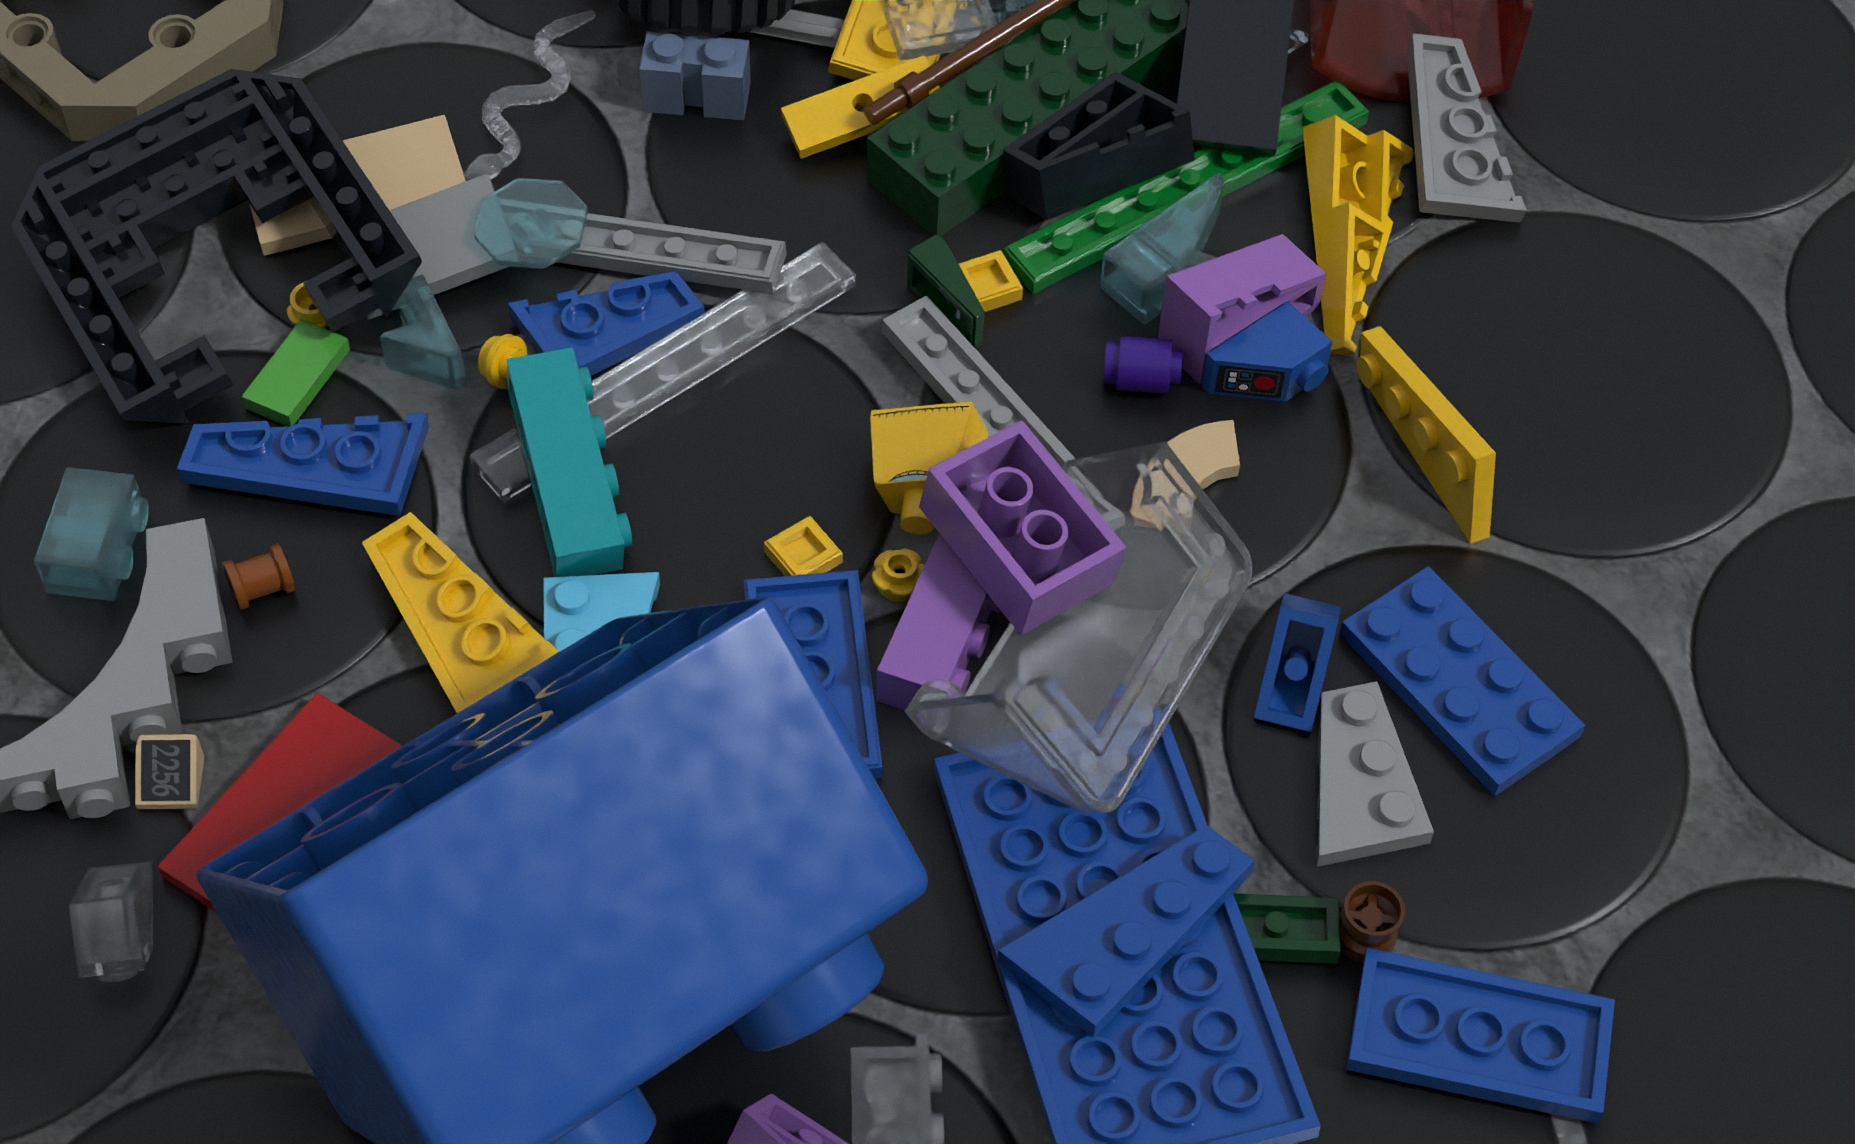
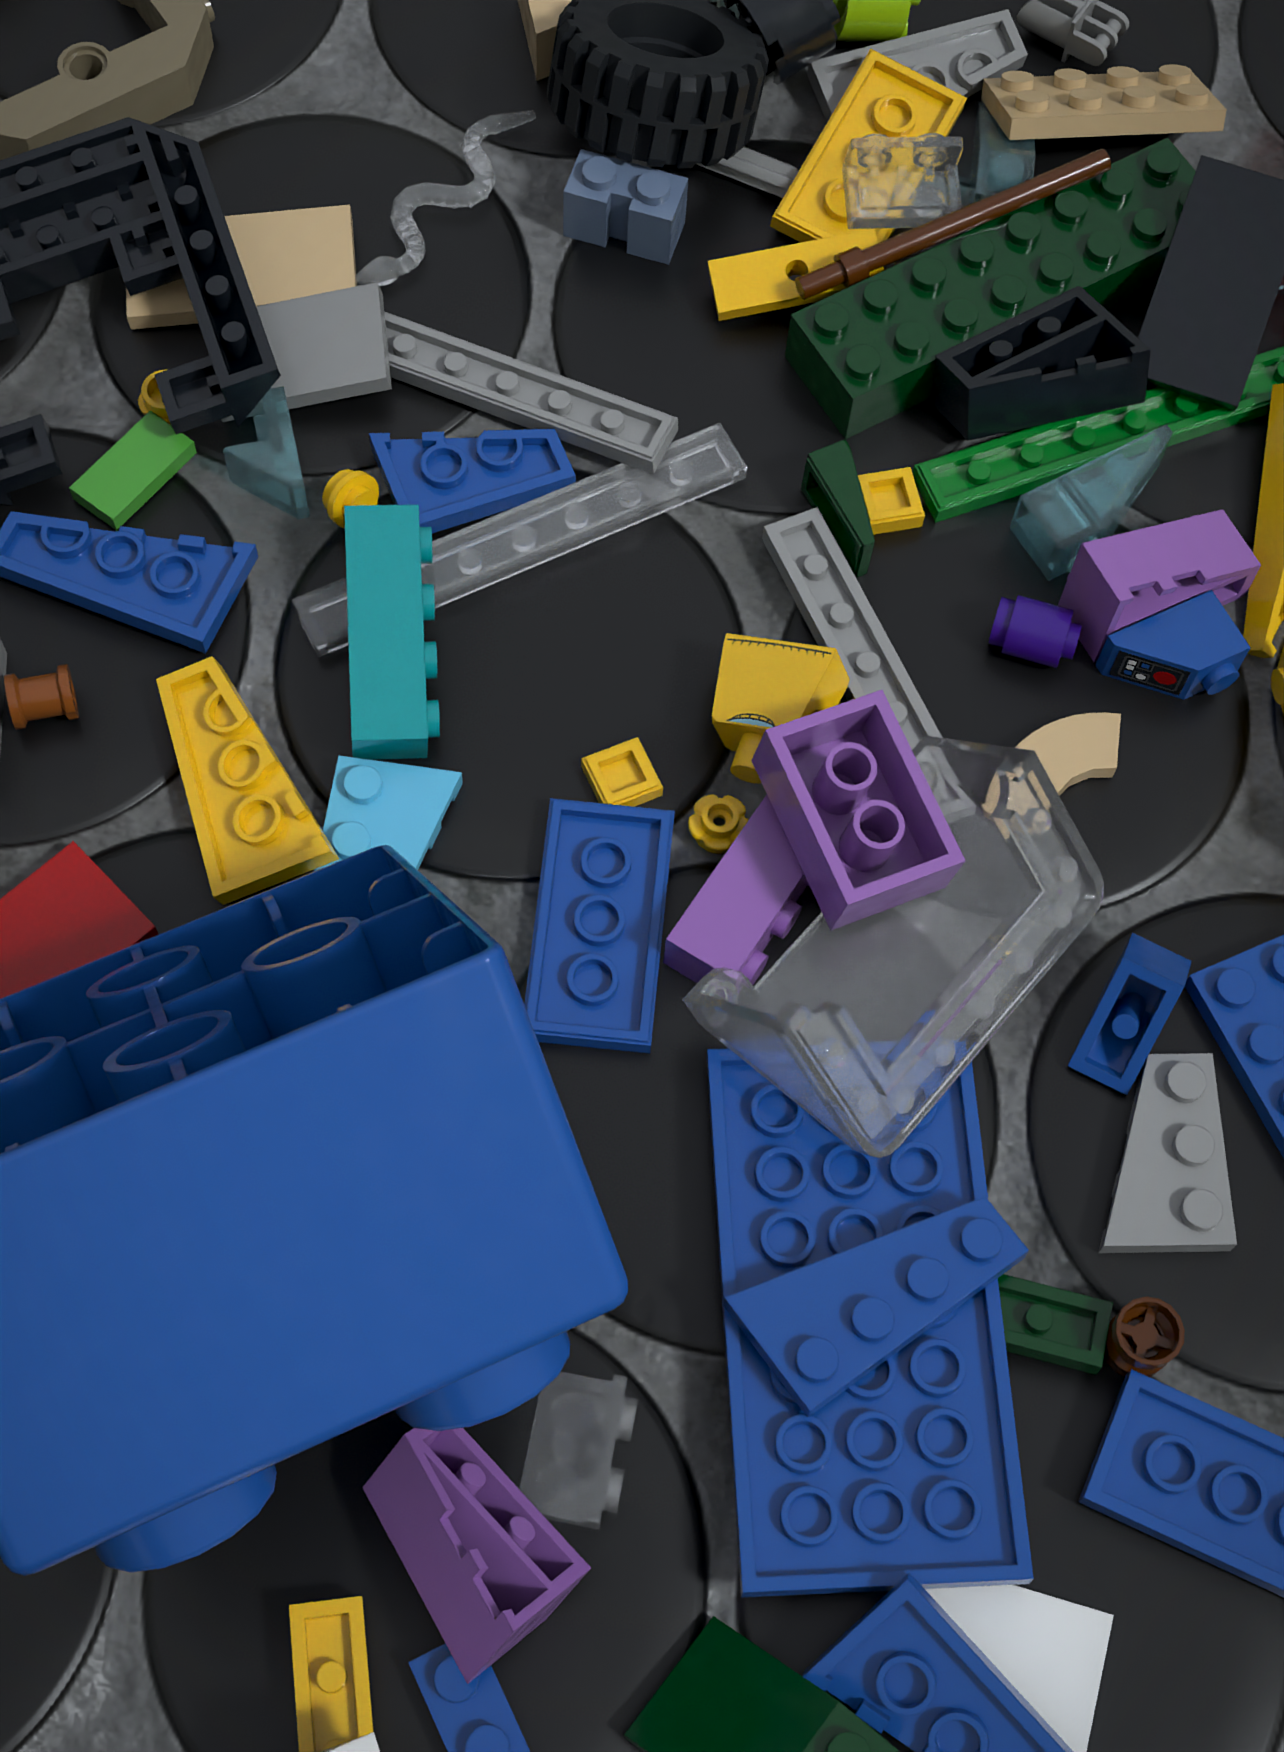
camera: 10 degrees right, 10 degrees up
(531, 223) = (409, 348): clear light blue piece -> none

